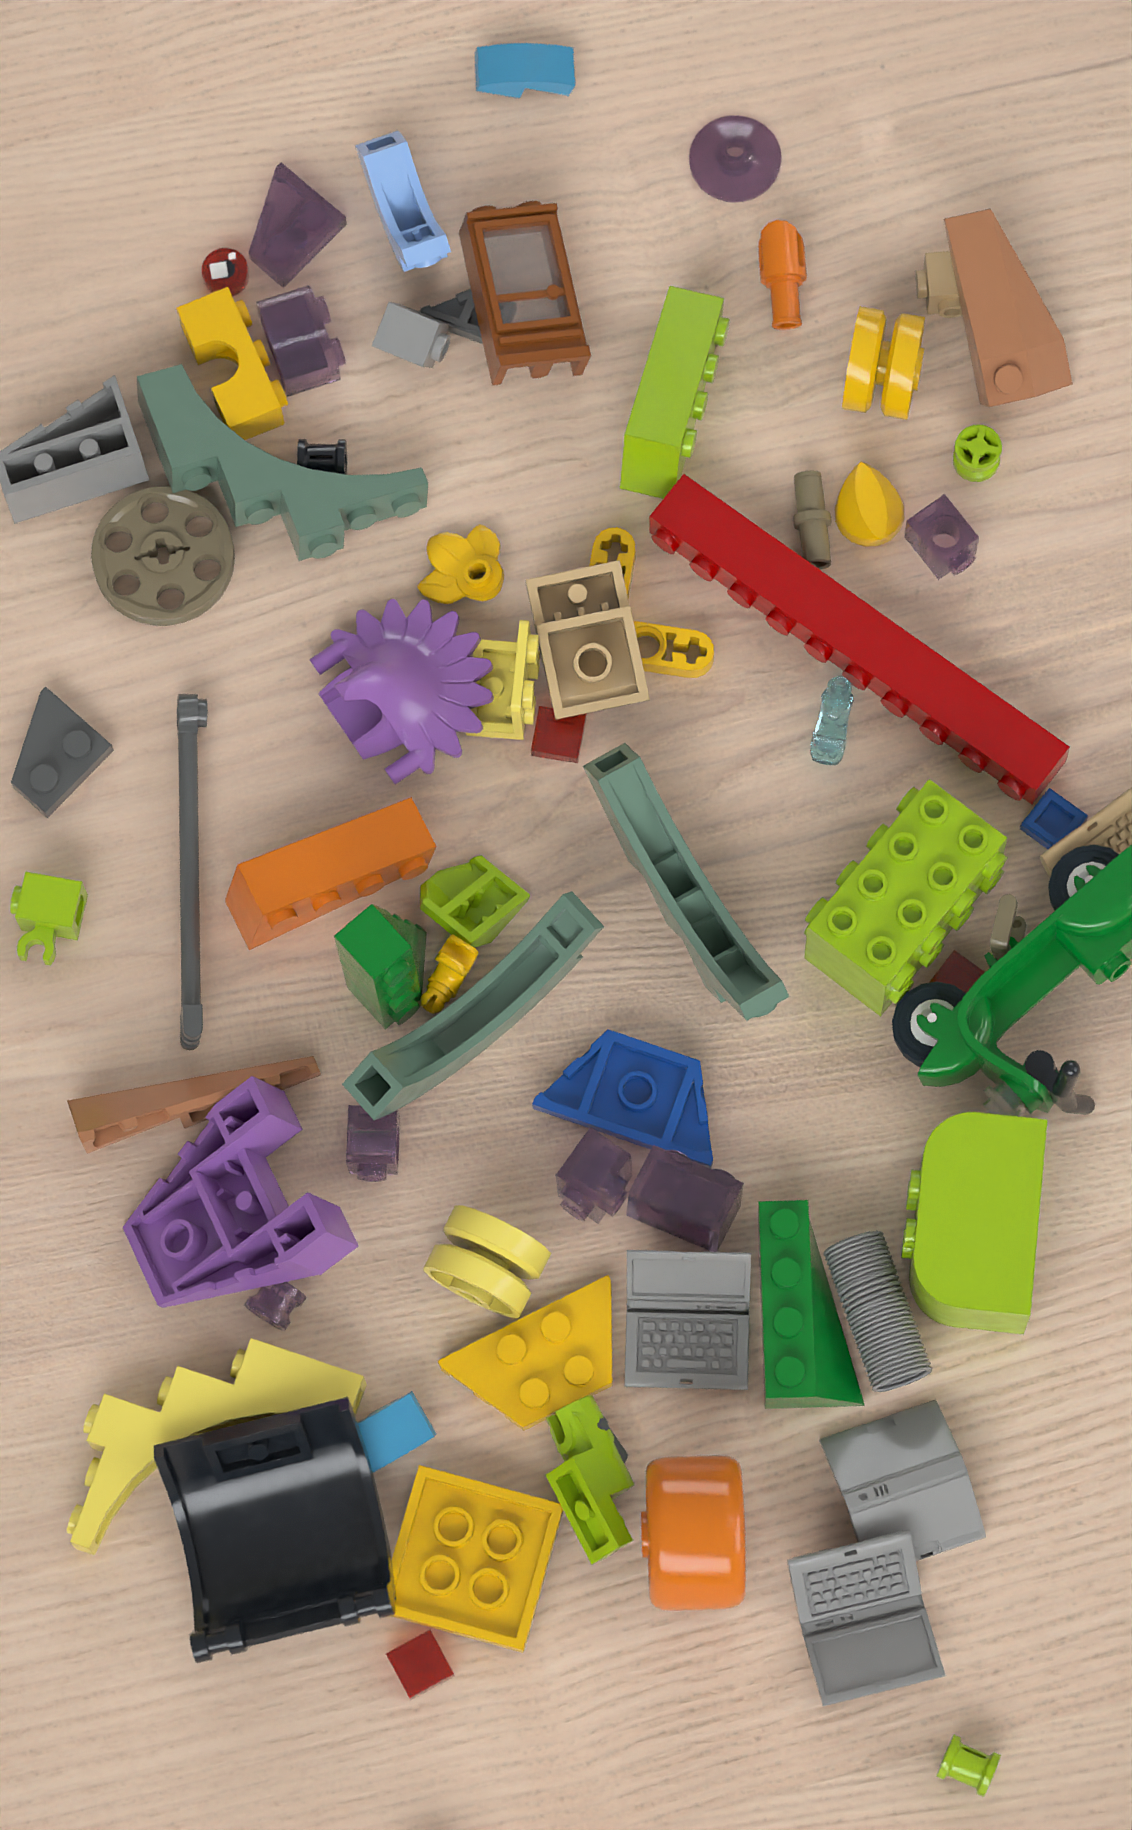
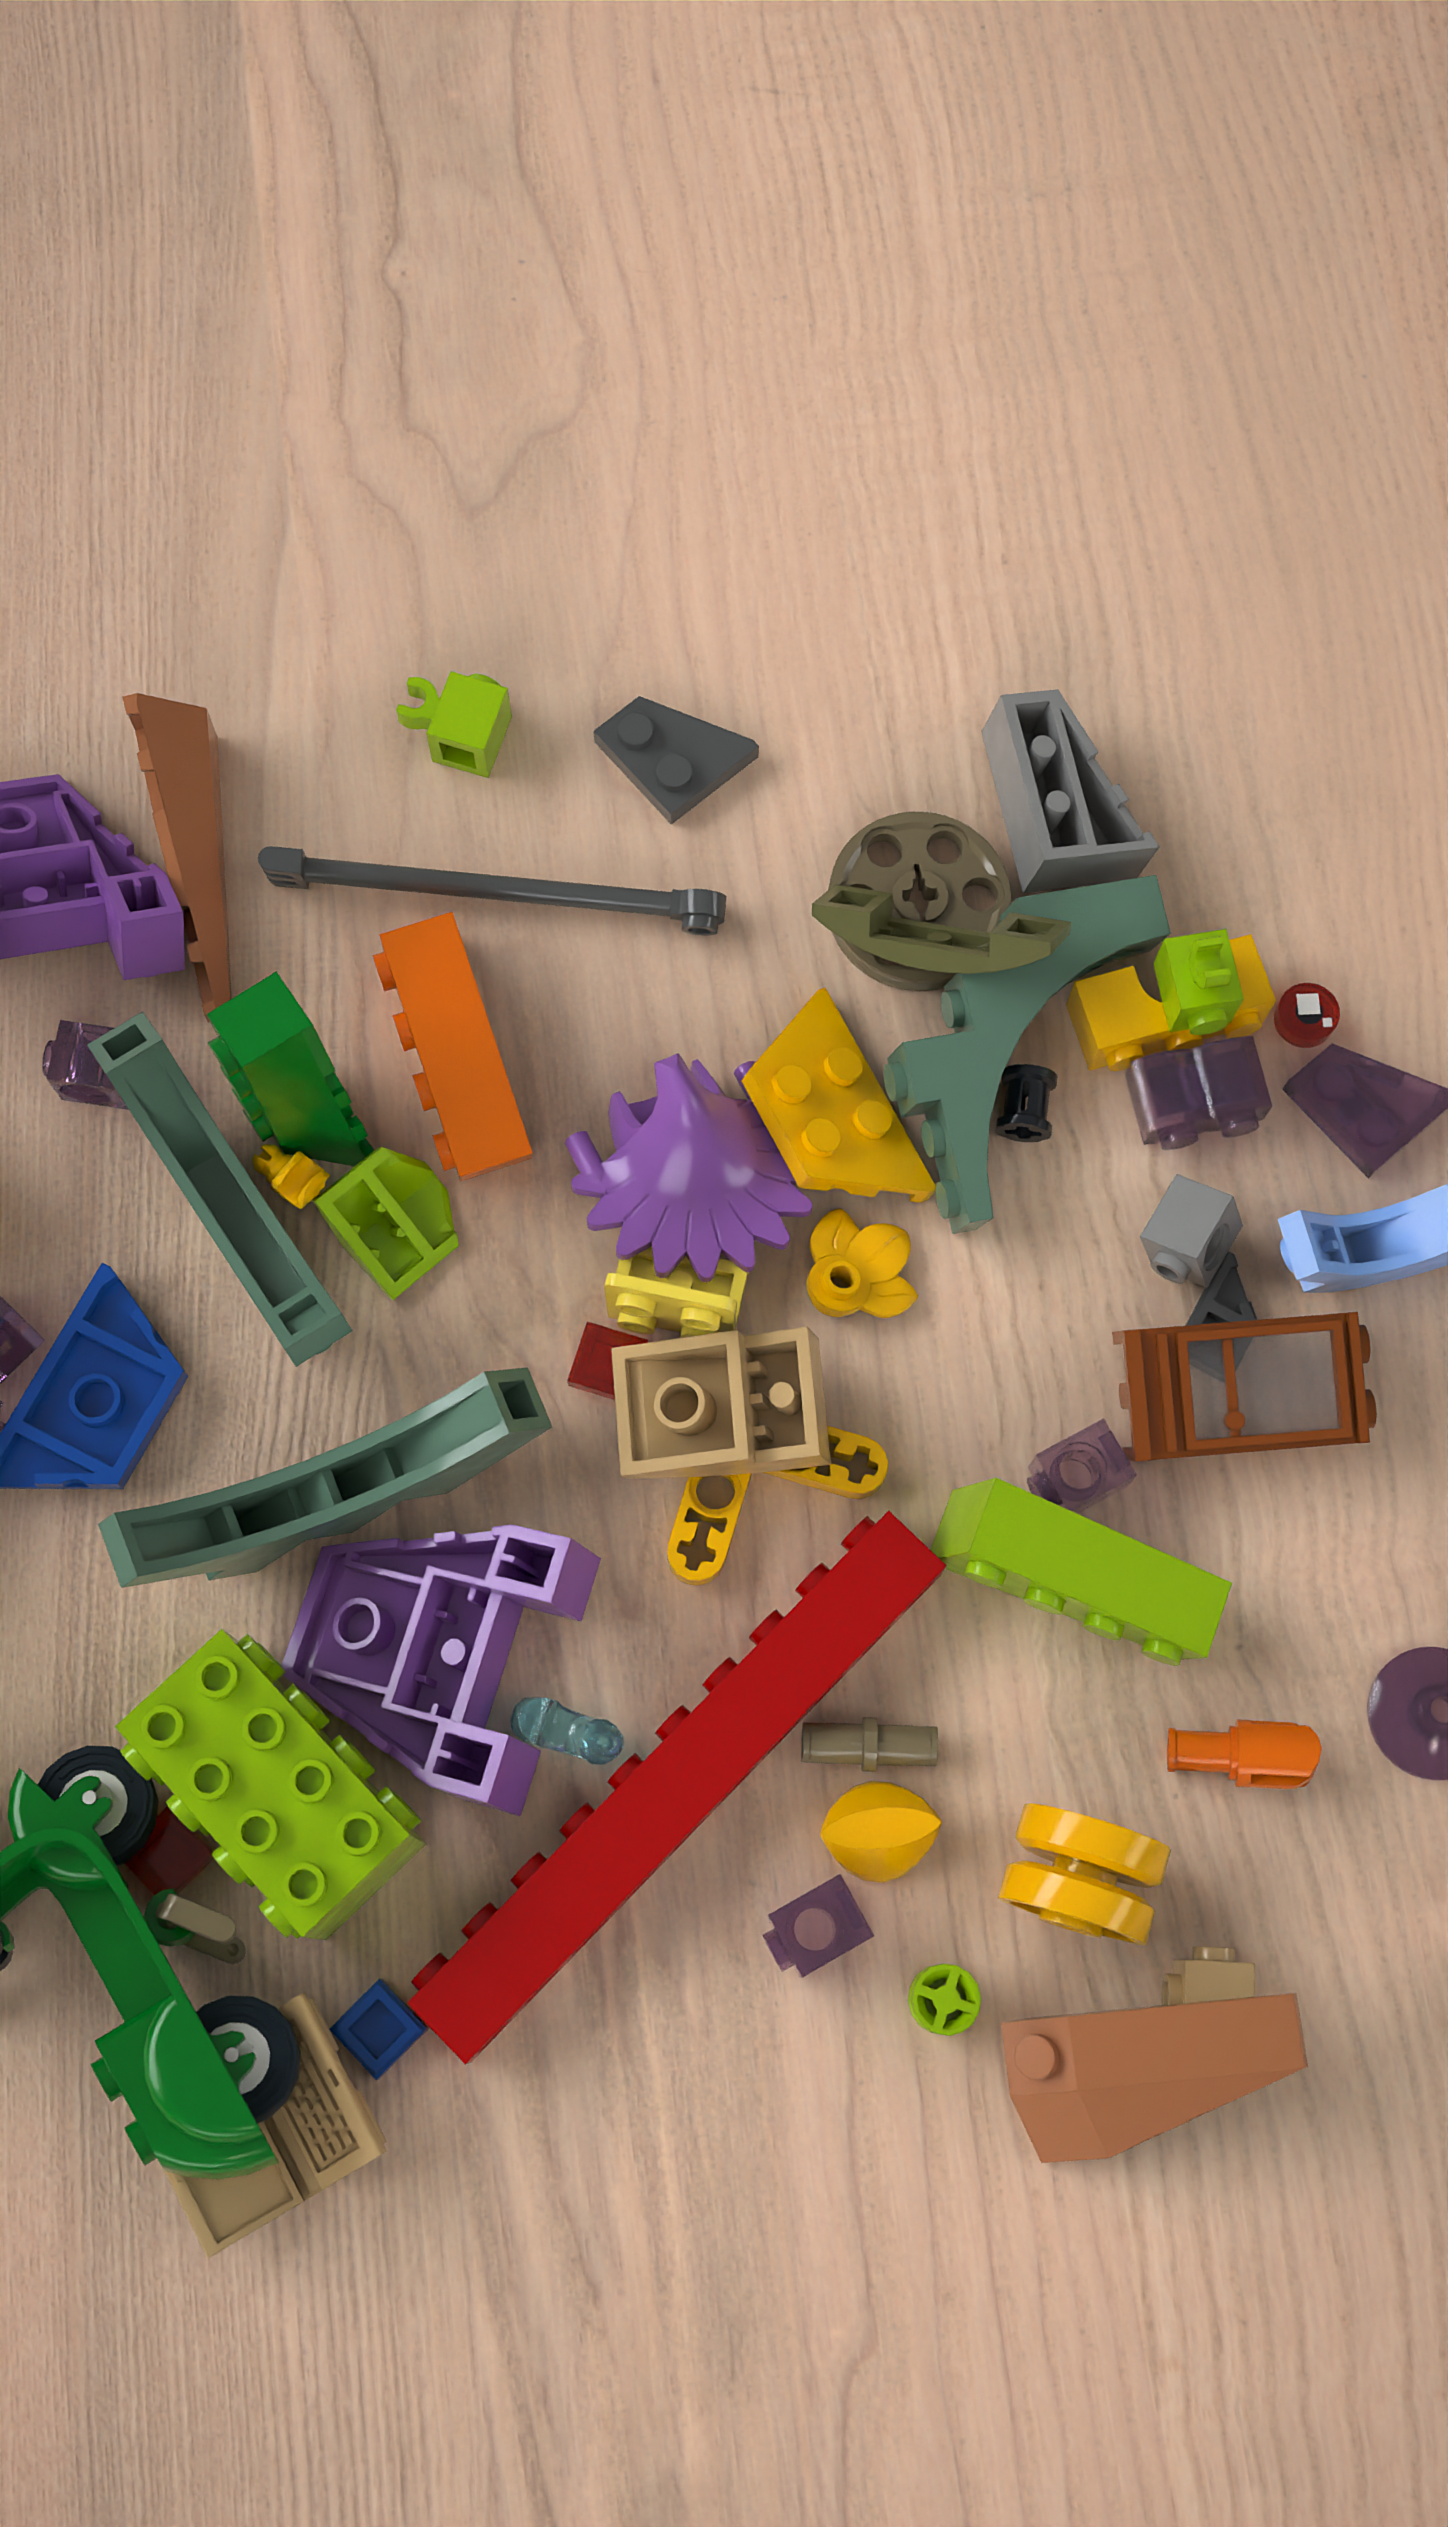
camera: 90 degrees right, 0 degrees up
(215, 521) = (867, 922): none -> olive slope
(228, 335) = (1198, 982): none -> lime brick
(342, 597) = (832, 1111): none -> yellow wing
(594, 379) = (1095, 1449): none -> brick
(782, 836) = (417, 1641): none -> medium lavender wedge

